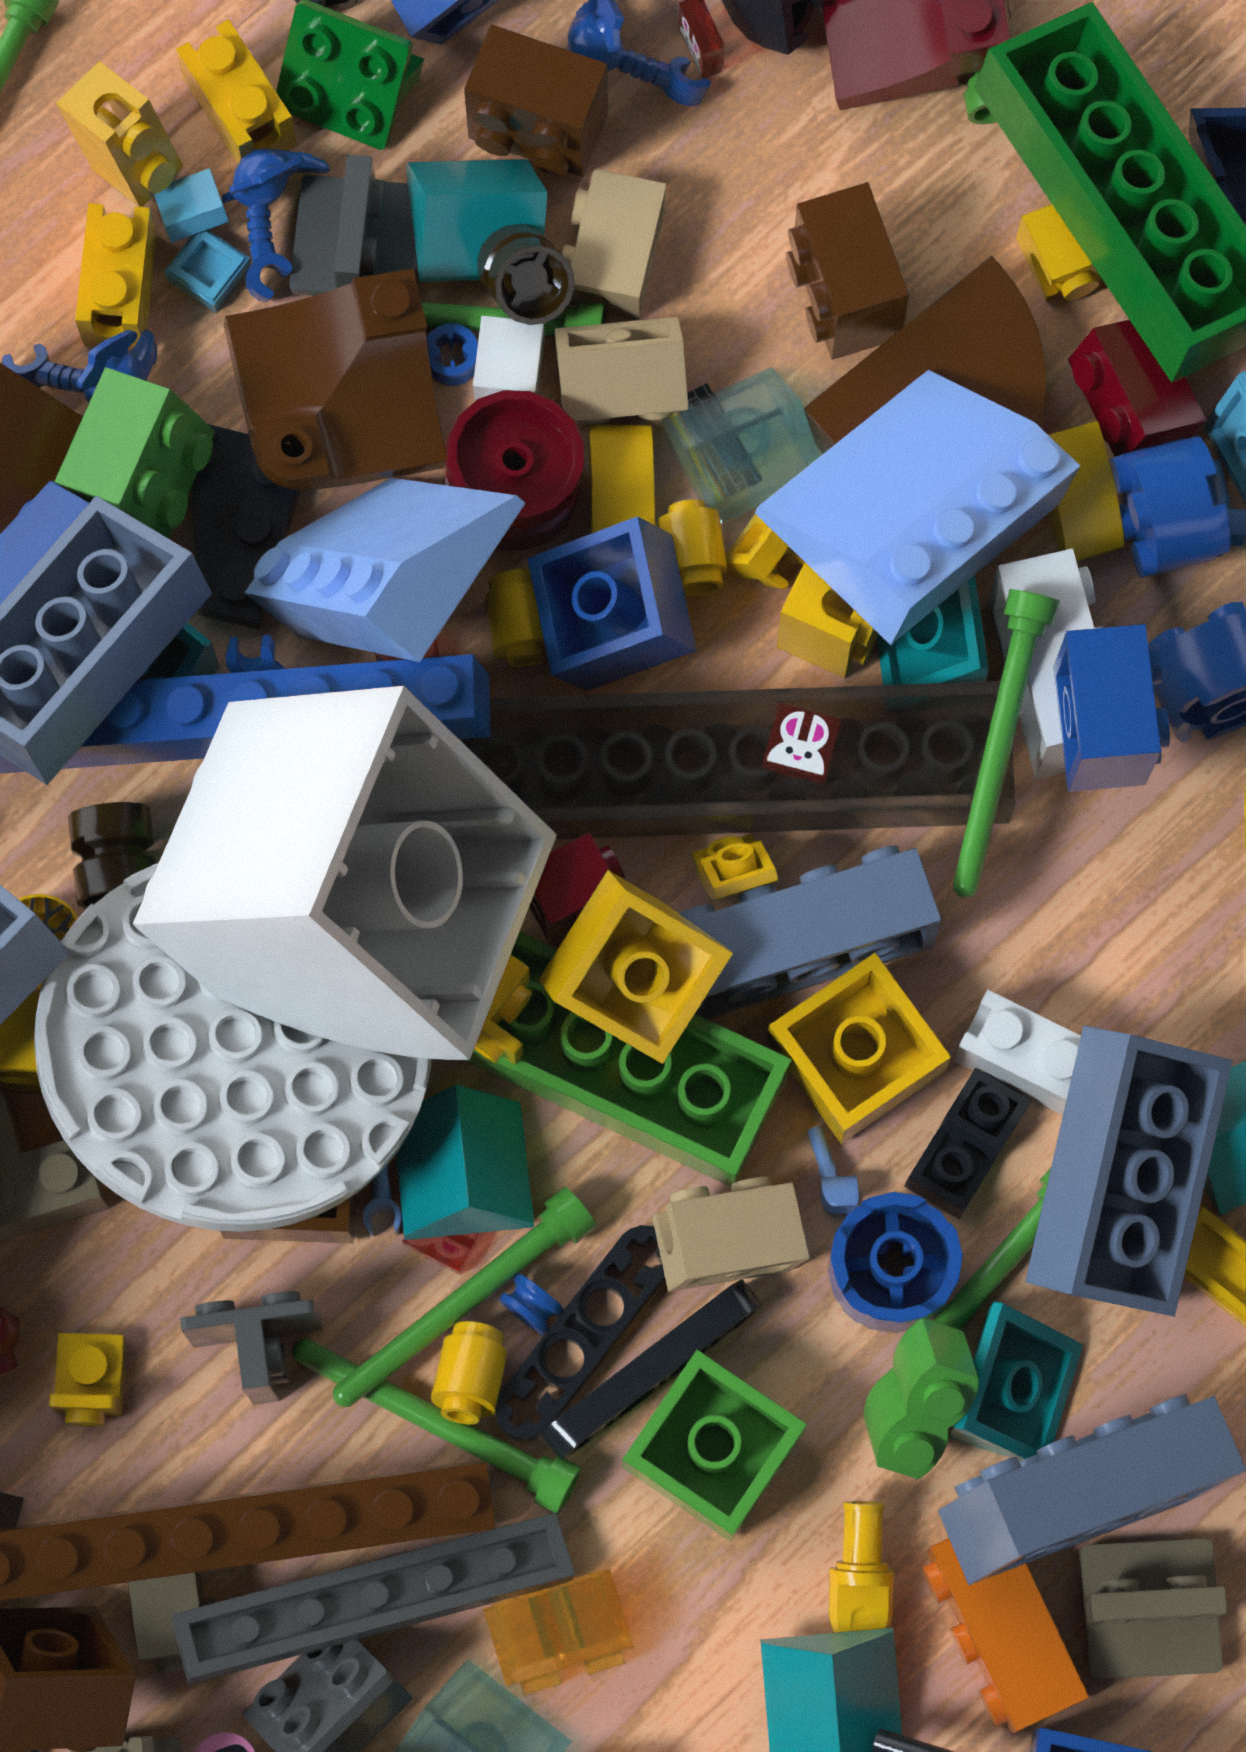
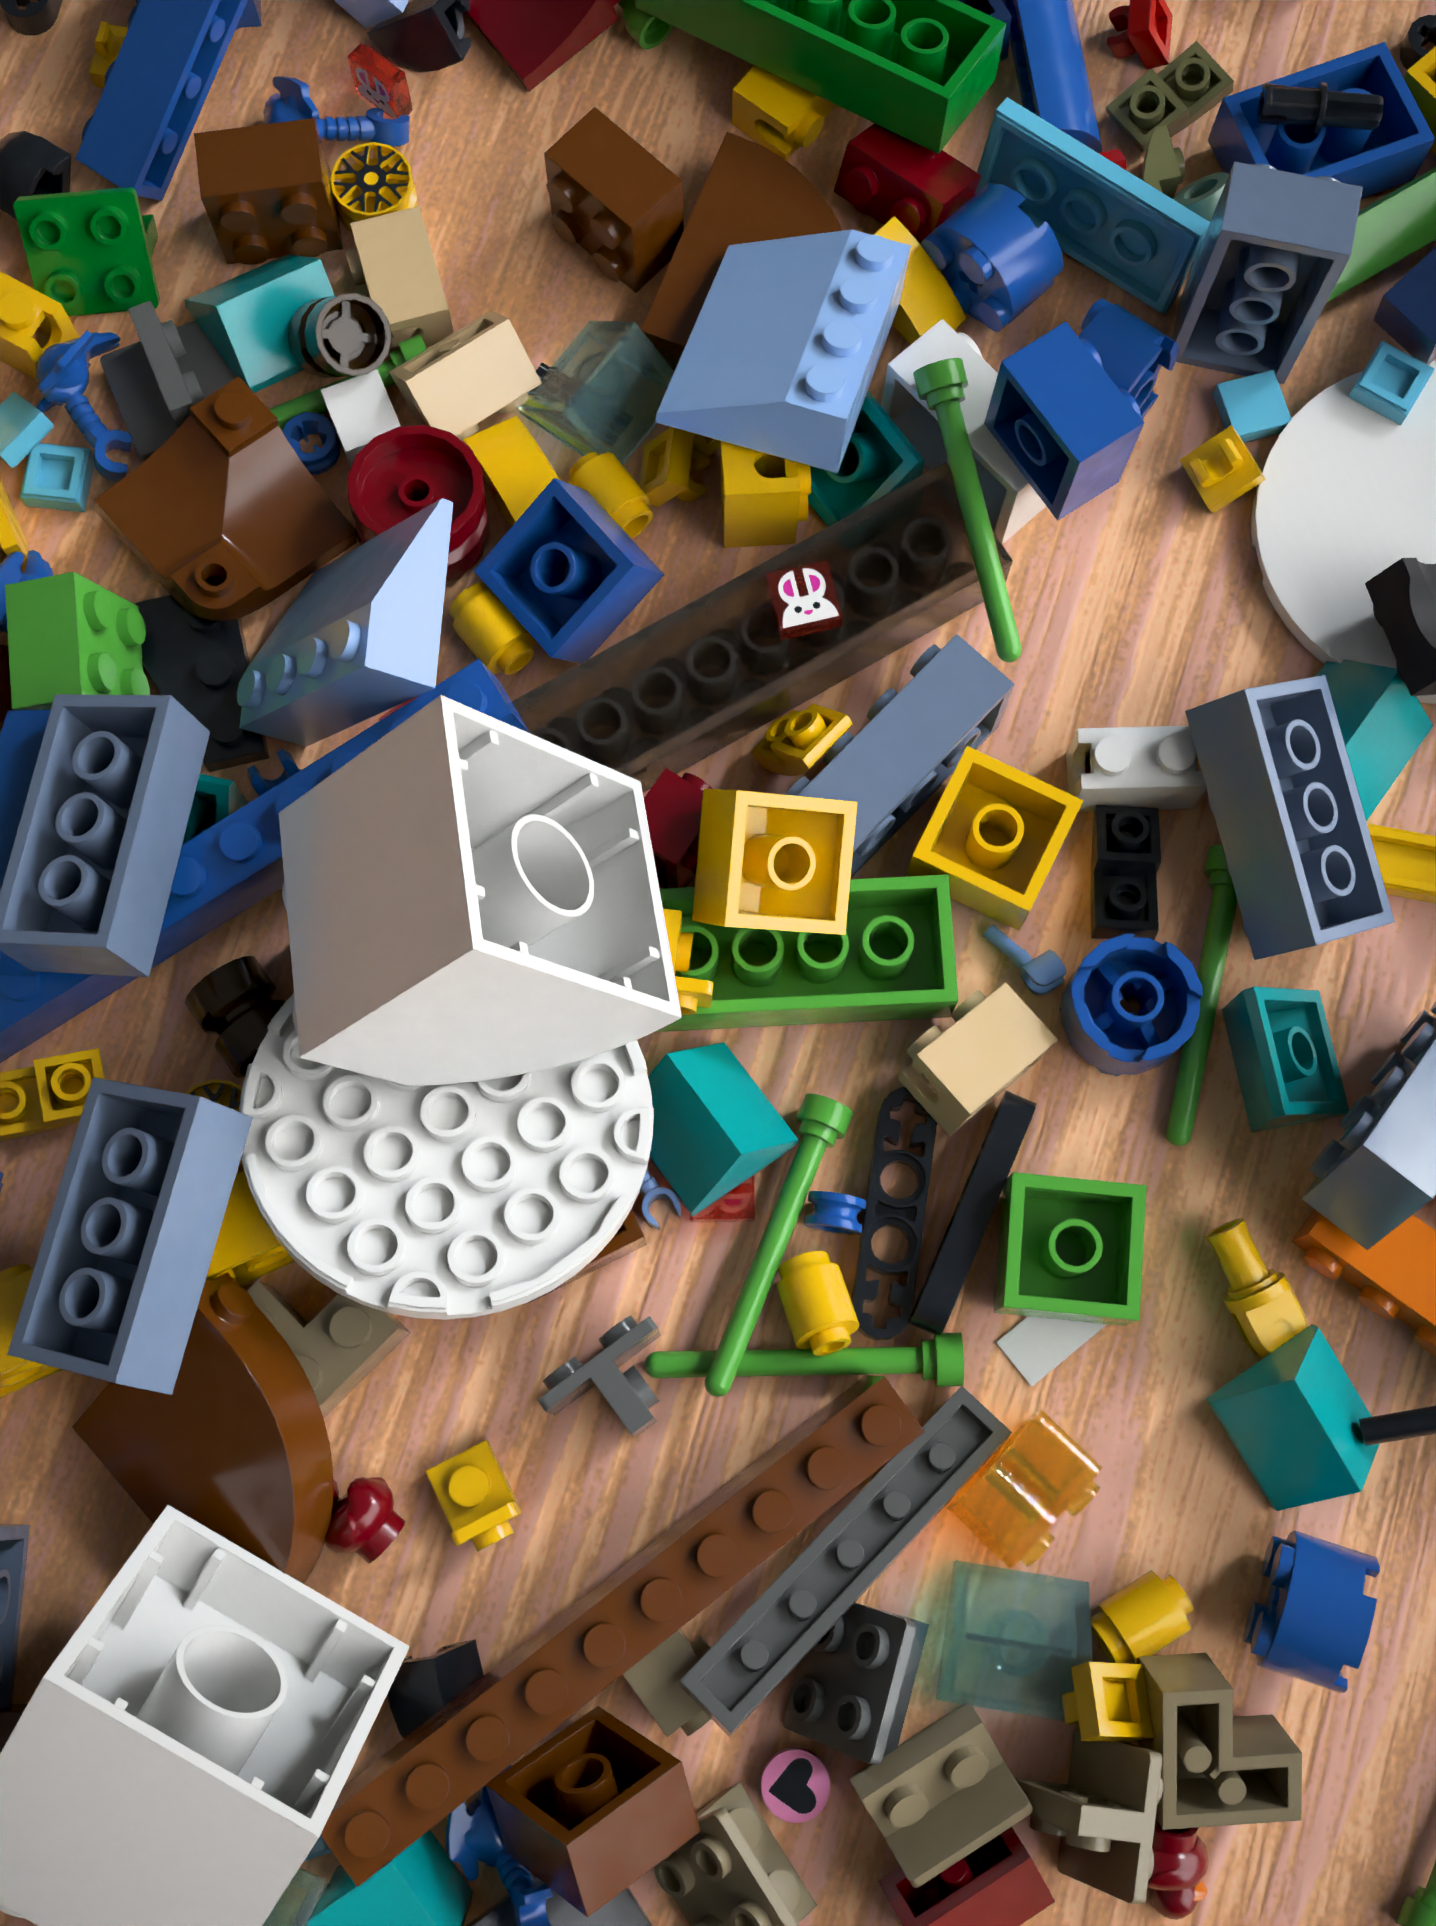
camera: 30 degrees left, 0 degrees up
(639, 138) = (372, 184): none -> yellow wheel
(652, 1519) = (1043, 1343): none -> white sticker
(920, 1398) = (1227, 1108): bright green brick -> none

